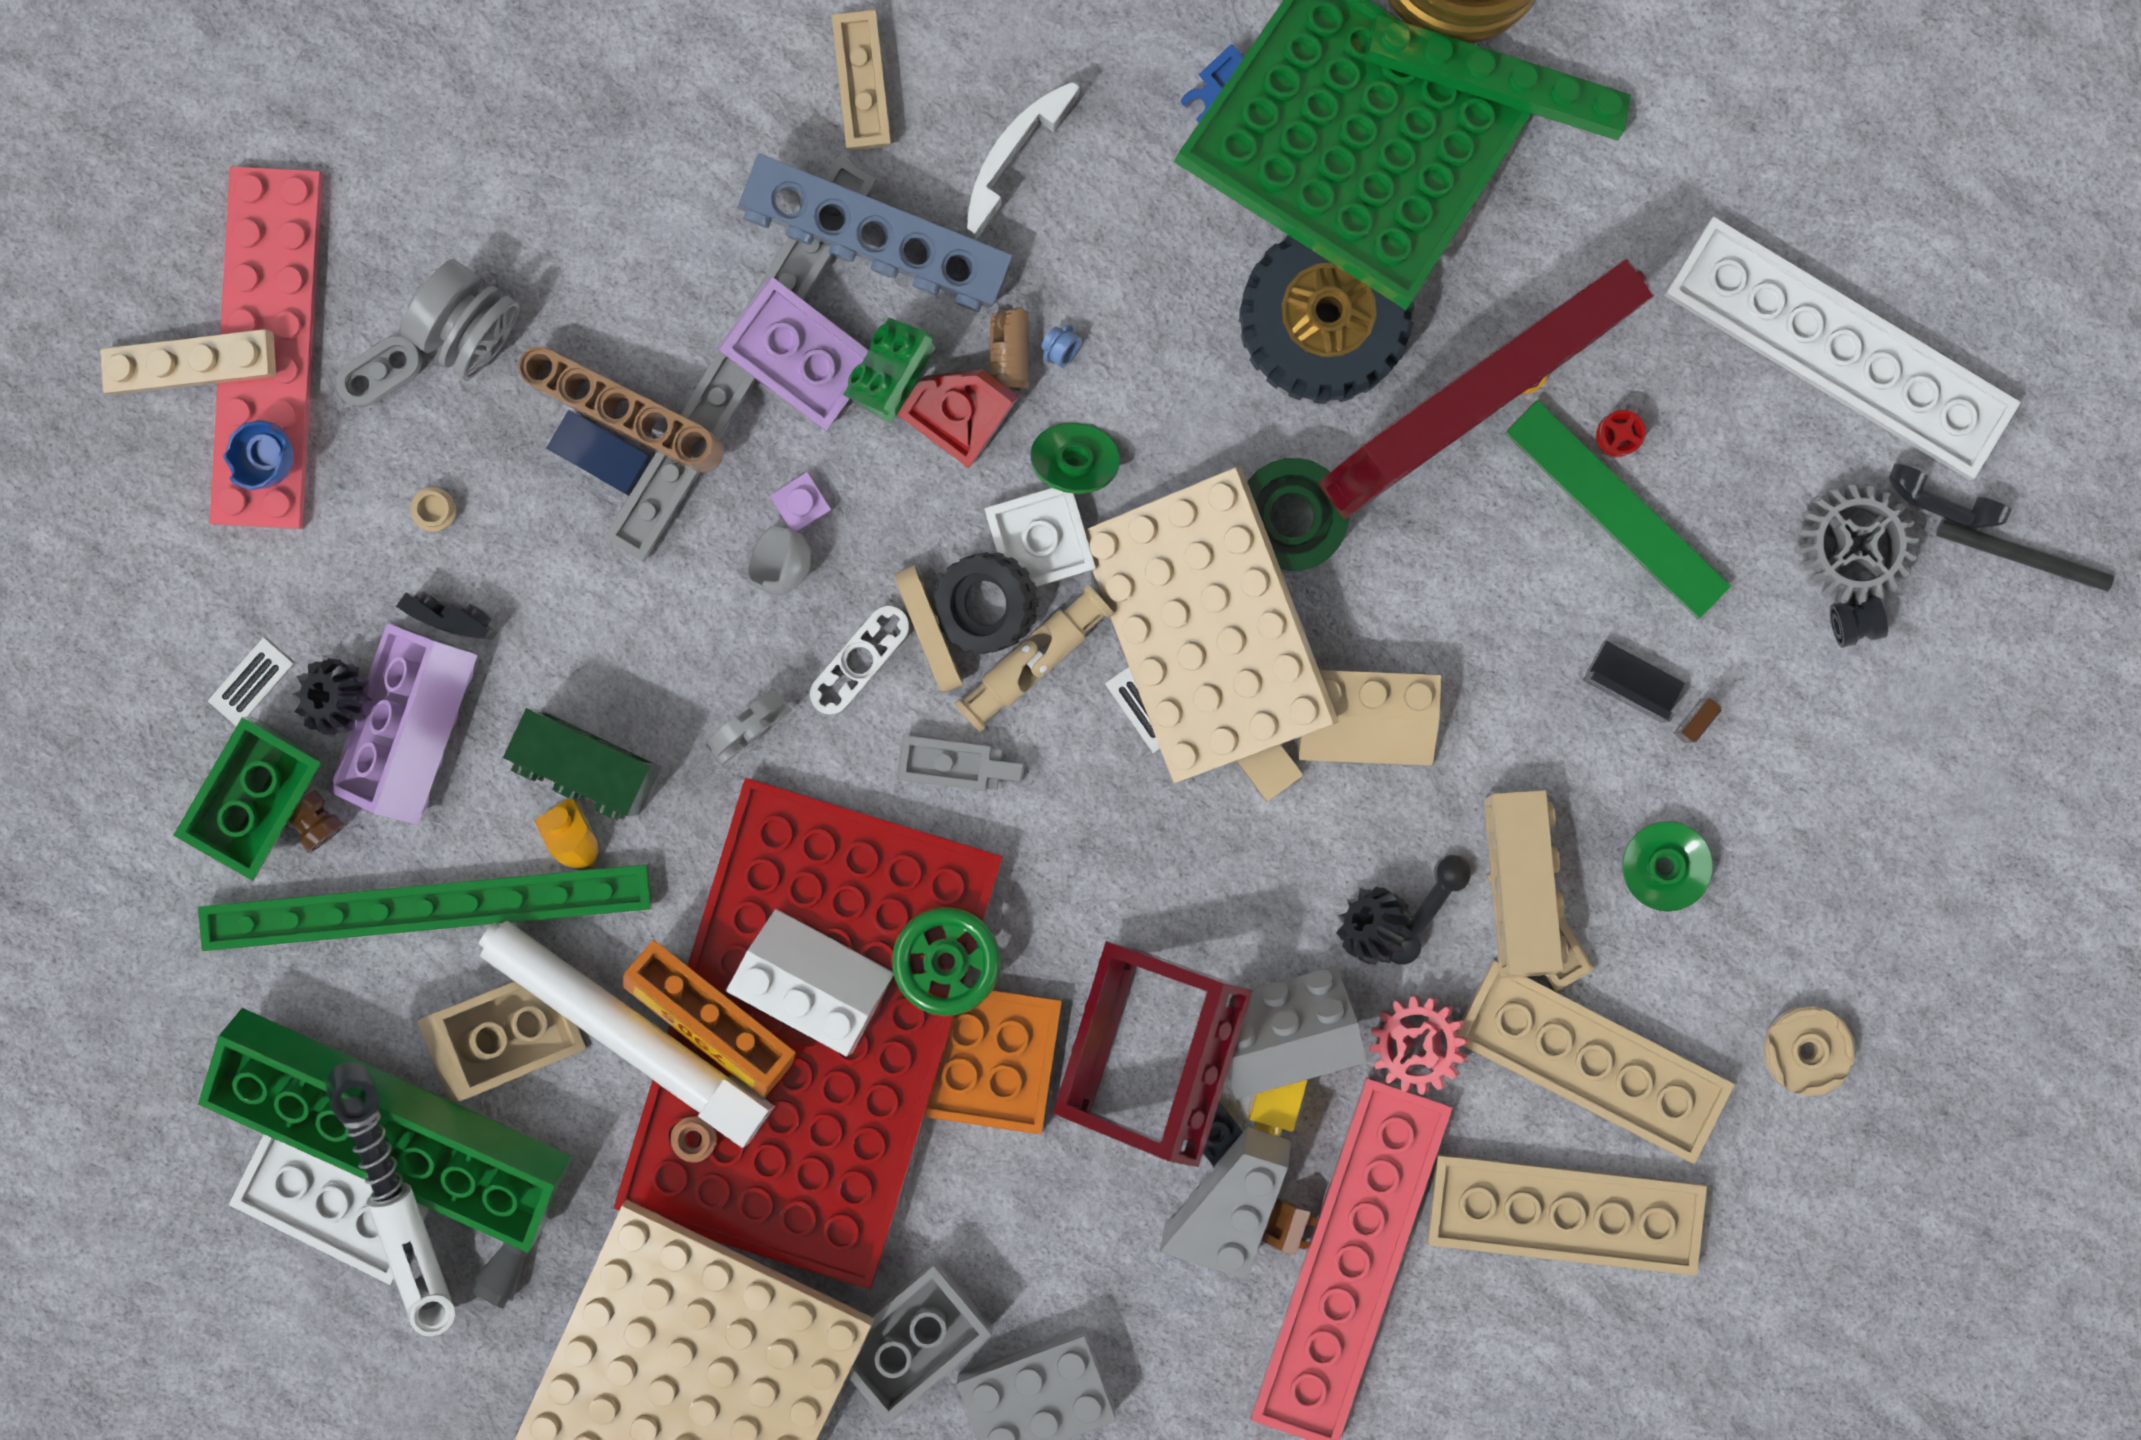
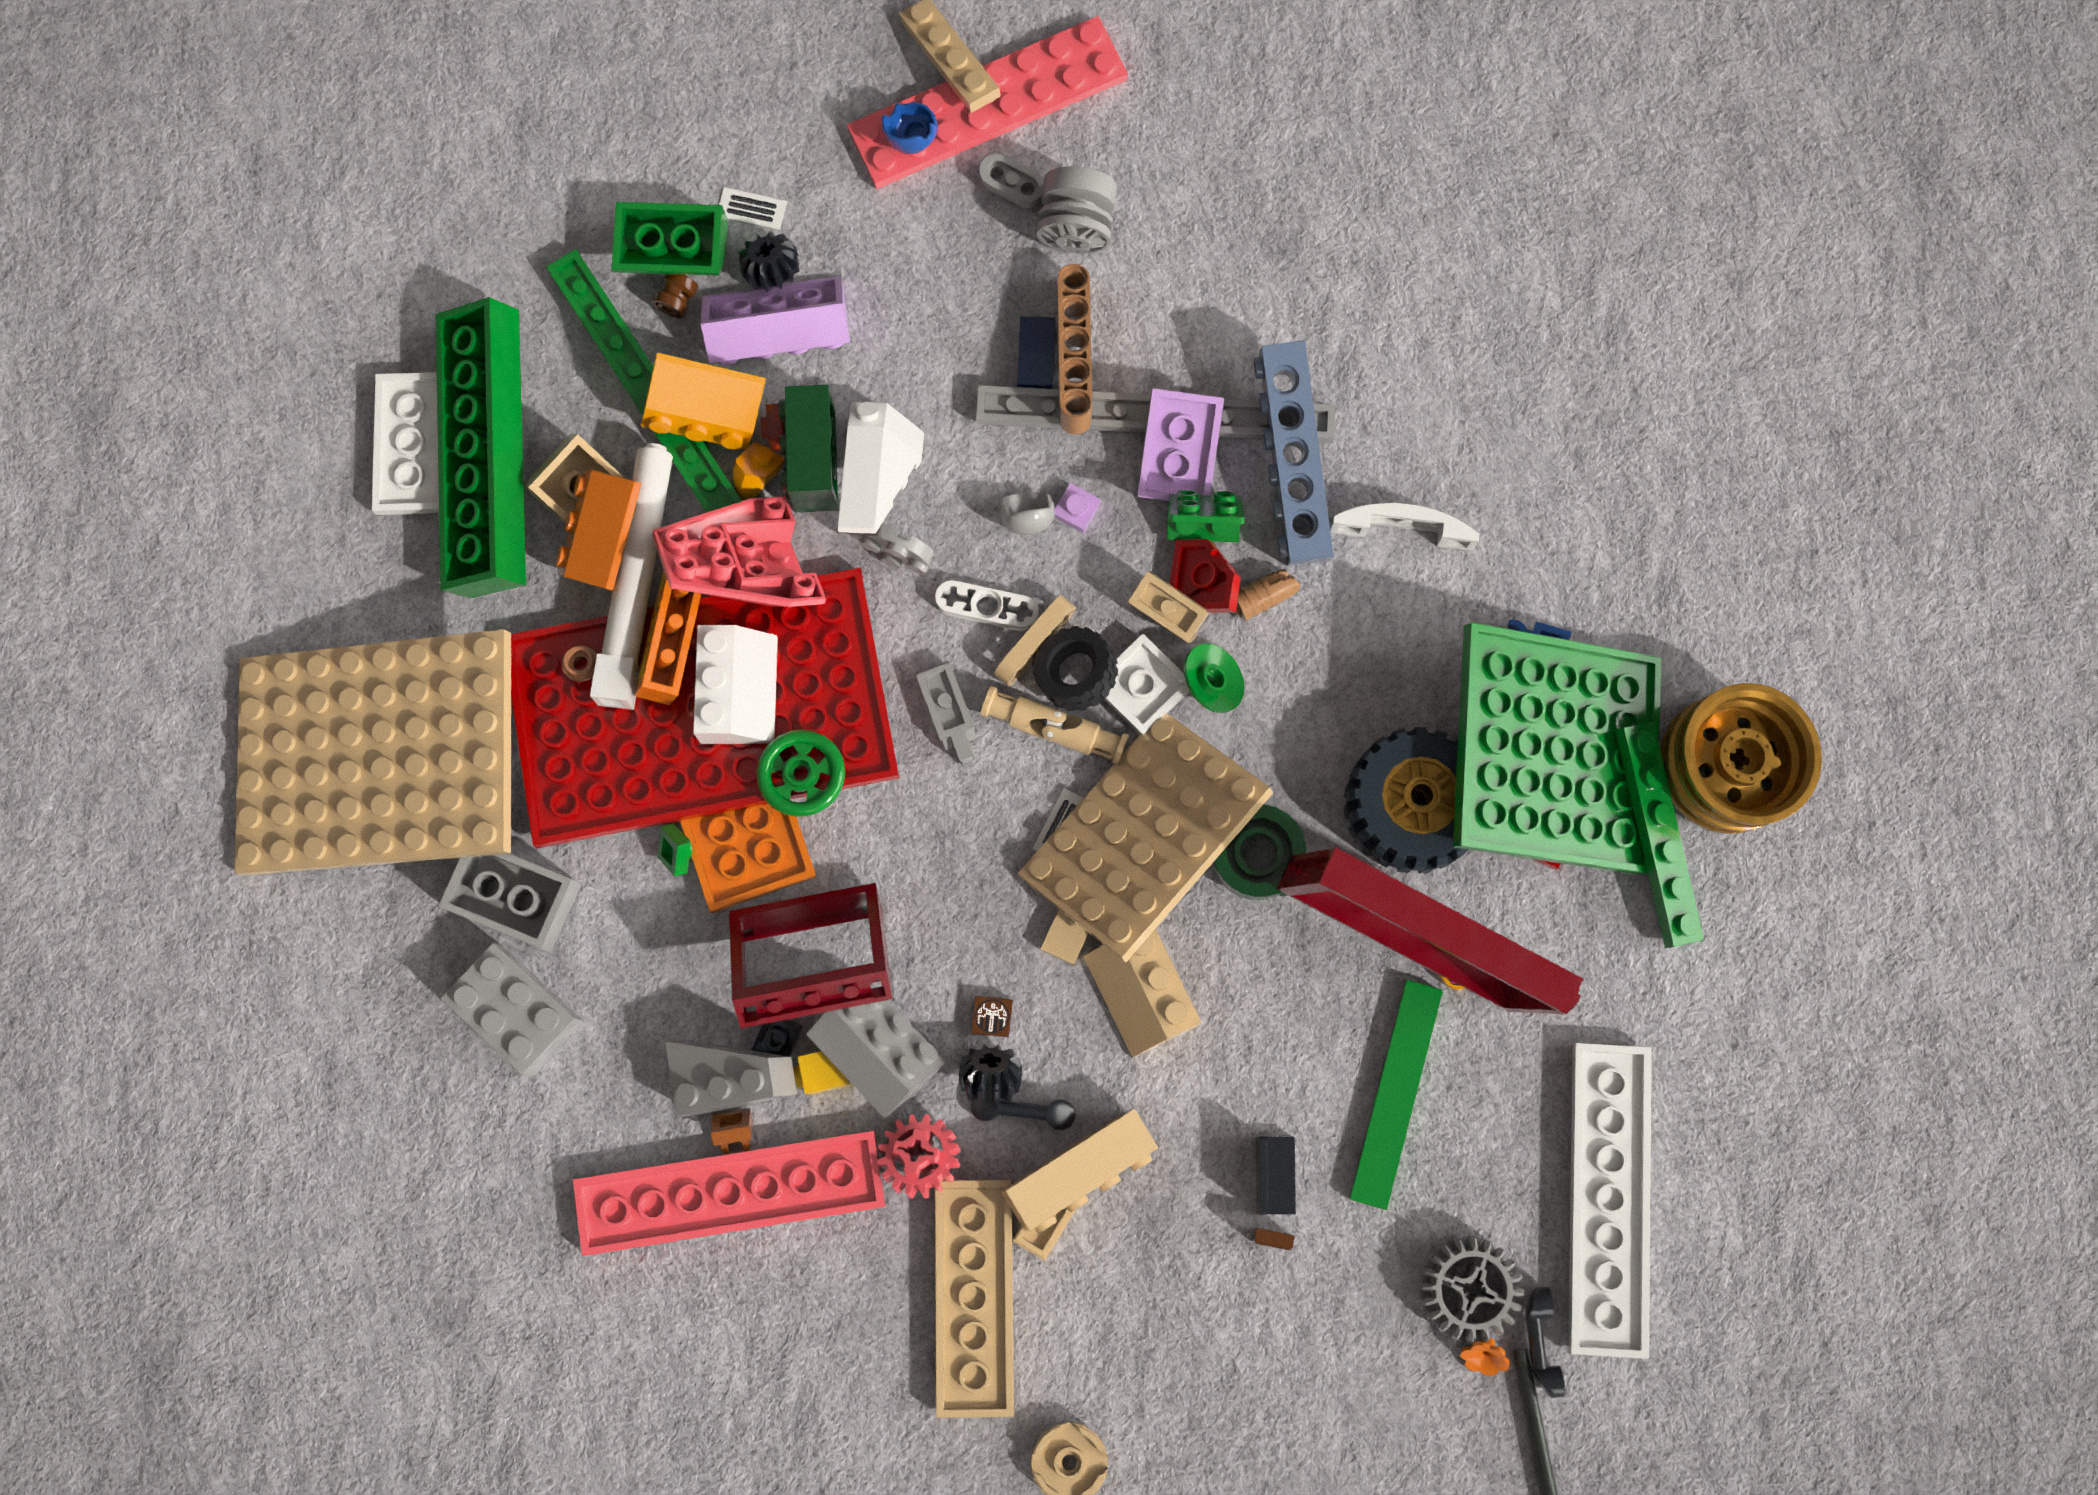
camera: 65 degrees right, 10 degrees down
(391, 1202) = (427, 476): piece -> none
(433, 509) = (936, 264): tan plate -> none
(458, 620) = (867, 315): black slope -> none
(467, 857) = (702, 402): none -> light orange slope
(500, 1276) = (415, 584): dark grey cone -> none
(529, 792) = (772, 426): none -> clear red plate
(553, 1044) = (597, 528): none -> orange slope
(636, 694) = (877, 464): none -> white wedge
(672, 906) = (739, 555): none -> coral wedge
(861, 80) = (1396, 394): tan plate -> none
(954, 1139) = (674, 849): none -> green plate
(973, 465) = (1169, 607): none -> tan panel
(1061, 345) = (1288, 628): medium blue plate -> none
(1311, 890) = (992, 1016): none -> reddish brown tile
(1566, 1214) = (848, 1340): tan plate -> none
(1625, 426) = (1460, 1065): red wheel -> none
(1689, 872) = (1155, 1295): green dish -> none
(1856, 621) = (1412, 1319): black wheel -> none
(1930, 568) = (1485, 1358): none -> orange plant

